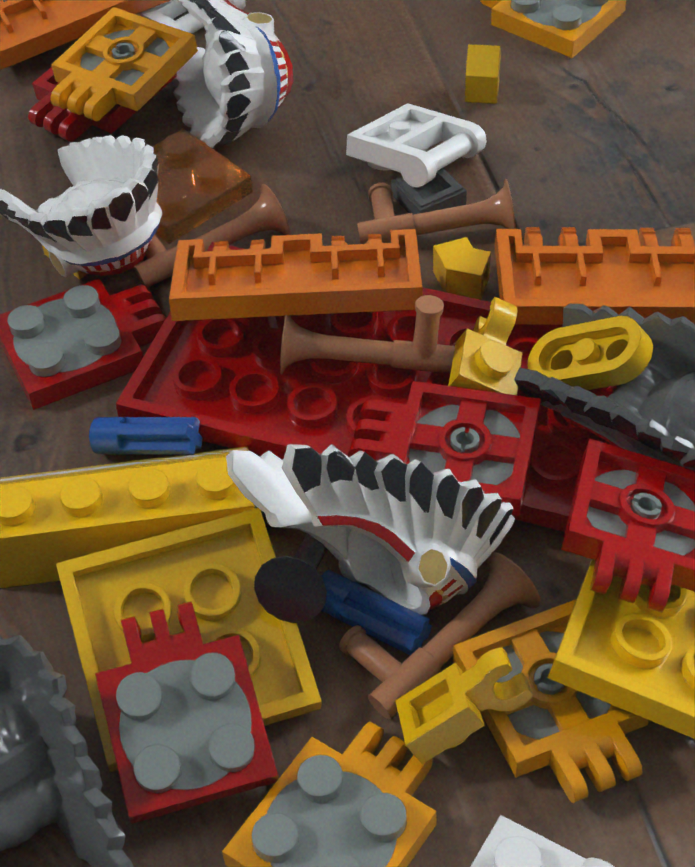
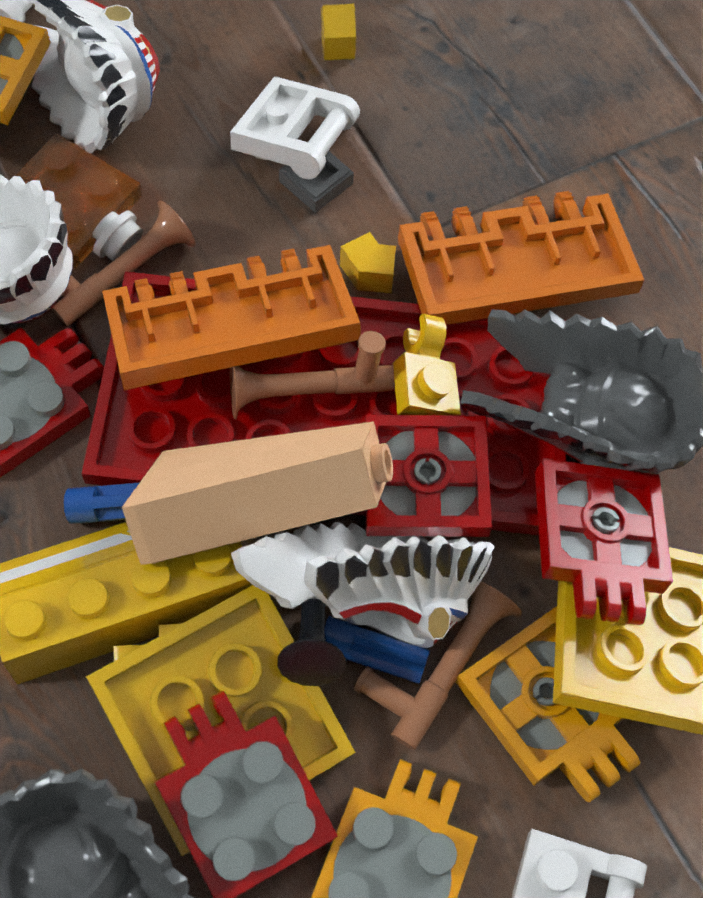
camera: 20 degrees left, 15 degrees up
(212, 211) = (116, 234): none -> white plate
(269, 414) = (254, 488): none -> light nougat slope
(450, 703) = (468, 738): yellow plate -> none
(493, 210) = (290, 225): nougat piece -> none
(593, 353) = (525, 363): yellow plate -> none

